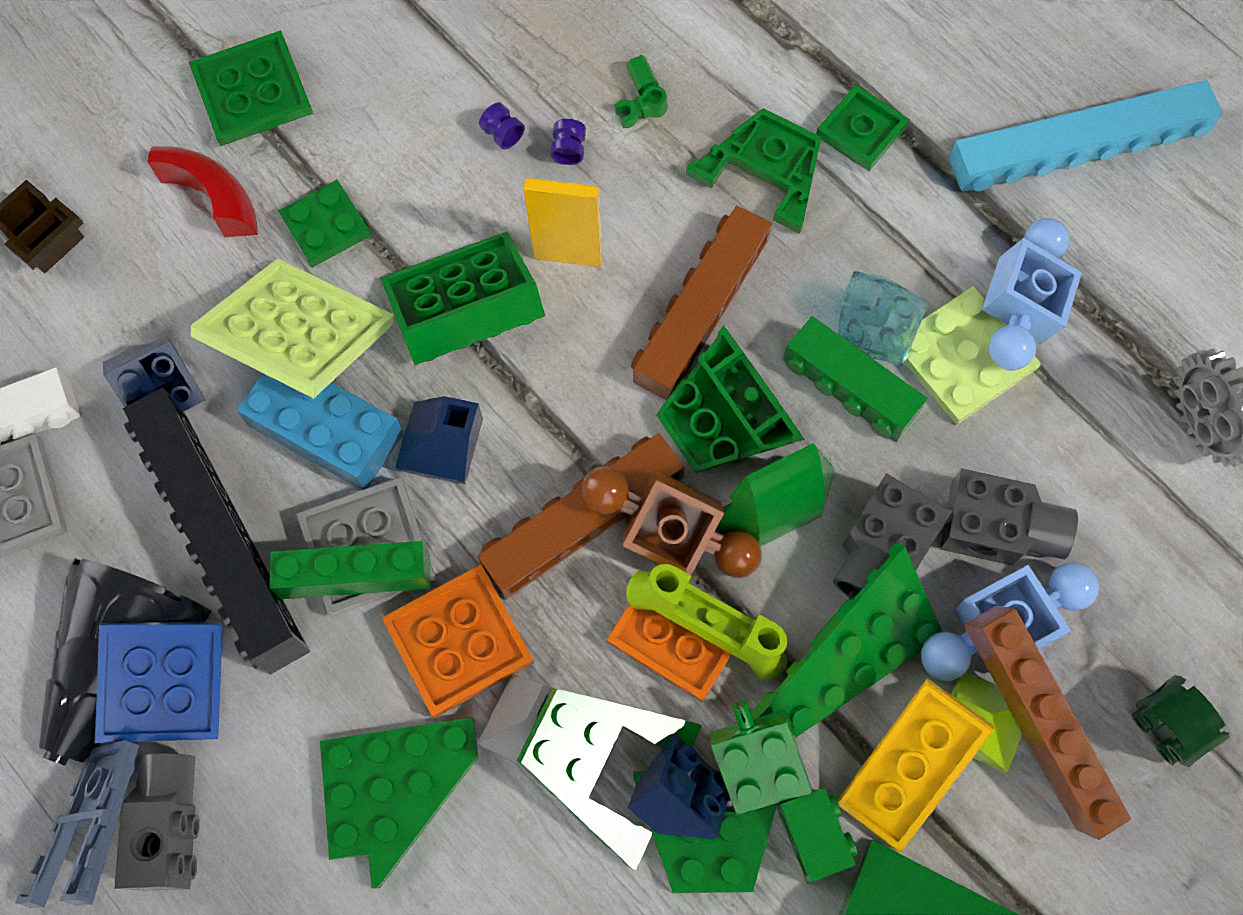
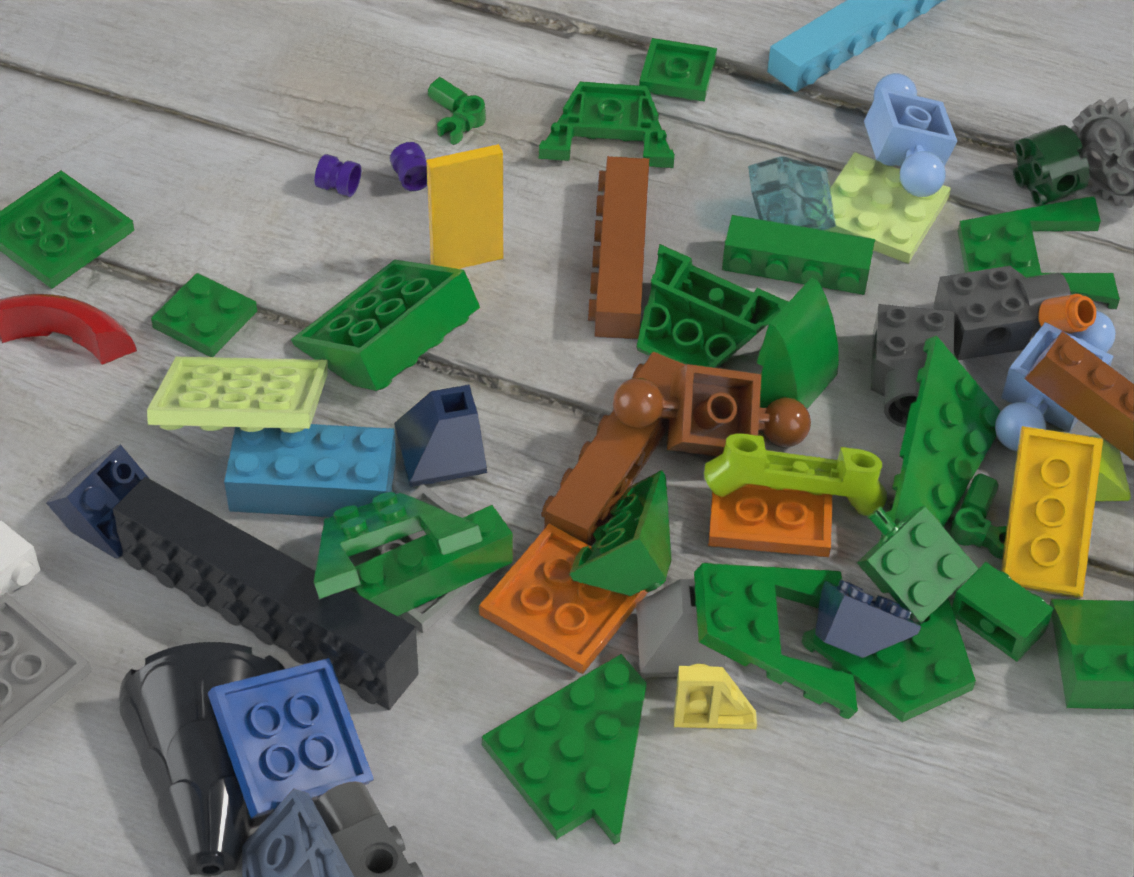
camera: 30 degrees left, 20 degrees down
(316, 511) = (378, 523): none -> green wing
(504, 799) = (710, 700): none -> light yellow wing
(528, 627) = (633, 545): none -> green wedge
(842, 730) = (970, 523): none -> green bar
(1051, 450) = (1009, 241): none -> green wing
(1053, 567) = (1068, 313): none -> orange brick
(1148, 384) = (1051, 164): none -> dark green brick

